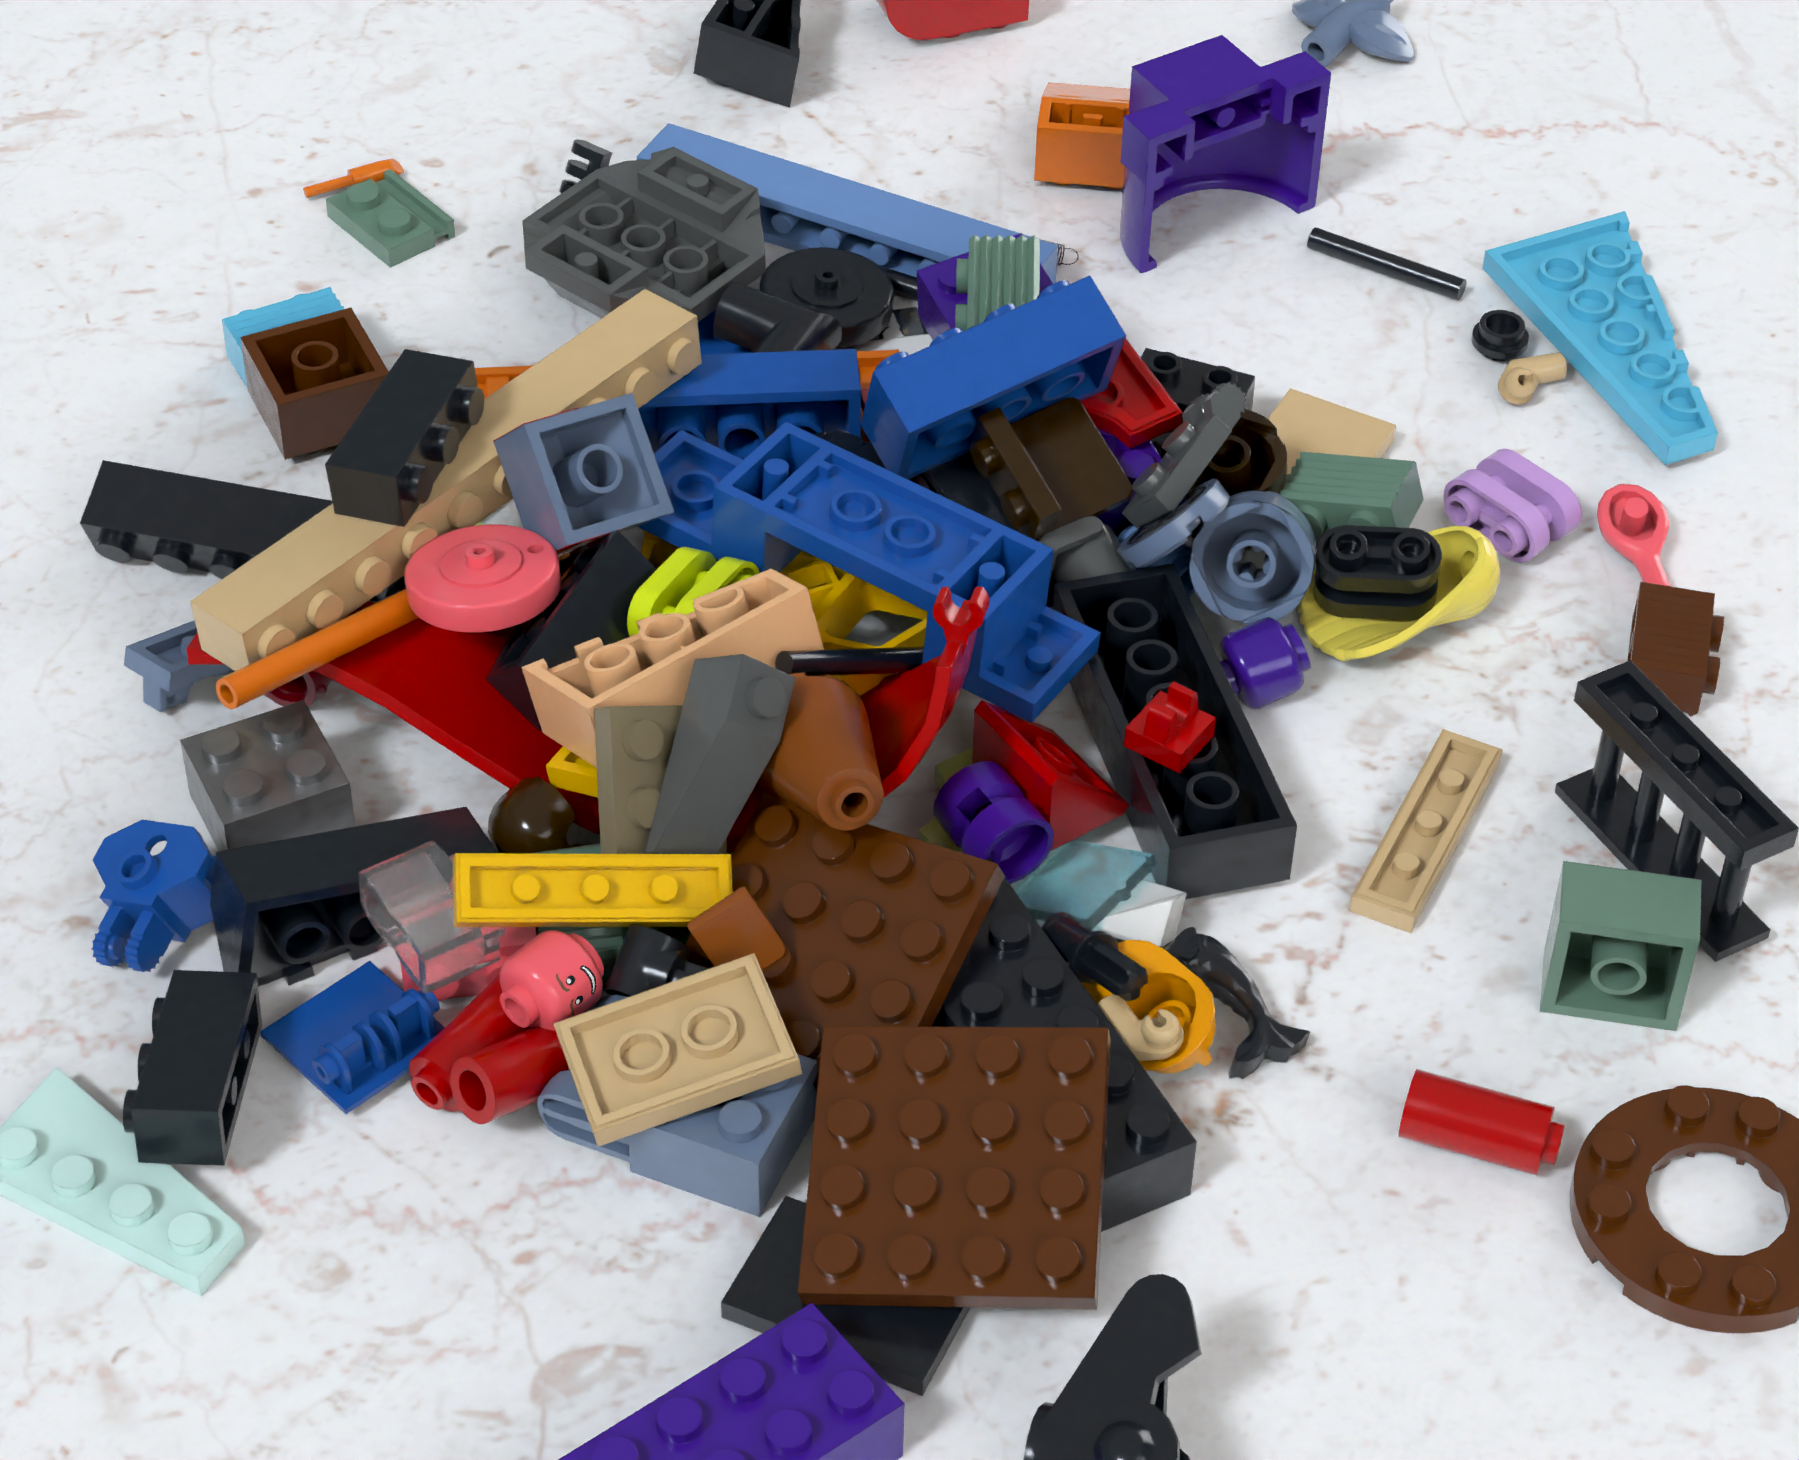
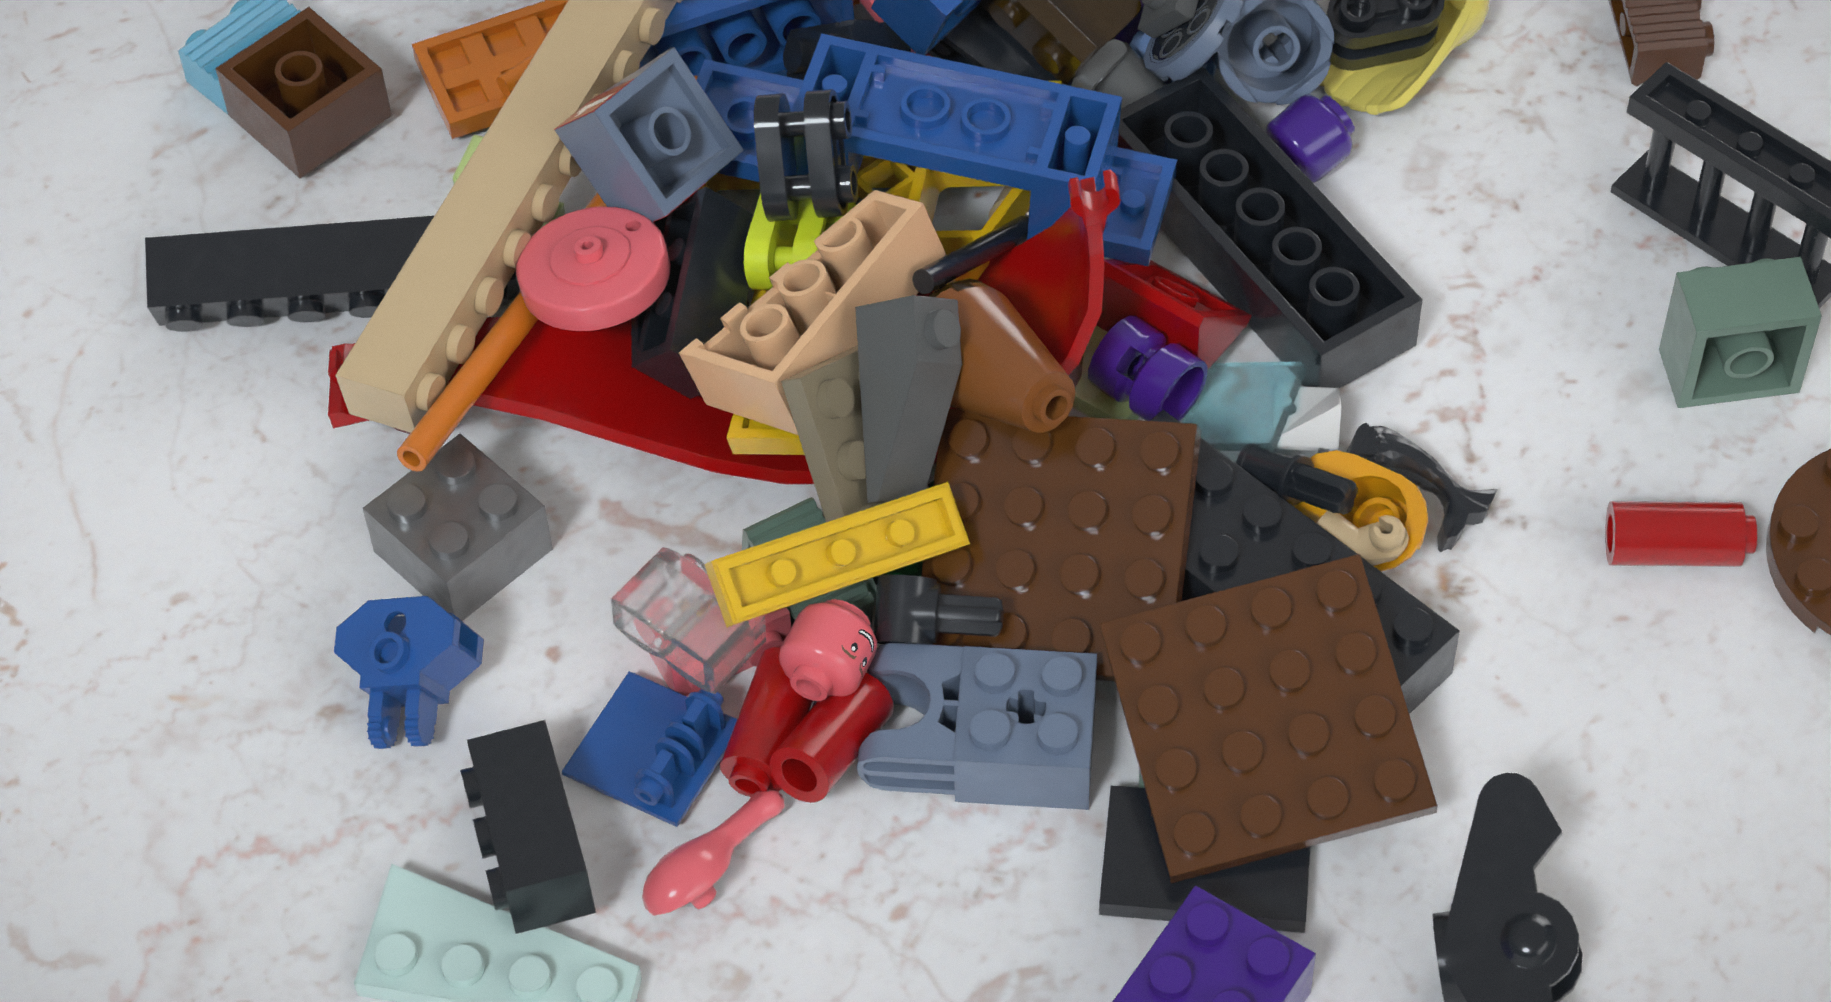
camera: 15 degrees left, 10 degrees up
(165, 666) = (303, 423): sand blue hinge -> none
(299, 897) = (559, 622): black wedge -> none
(335, 1149) = (695, 866): none -> coral piece
(404, 437) = (472, 150): black brick -> none
(530, 819) = (727, 497): dark brown hair -> none
(677, 1049) = (975, 683): tan tile -> none
(712, 518) = (825, 126): none -> black brick
(737, 929) = (983, 558): dark orange slope -> none
(1170, 728) = (1276, 237): red tile -> none
(1426, 831) = (1514, 262): tan tile -> none

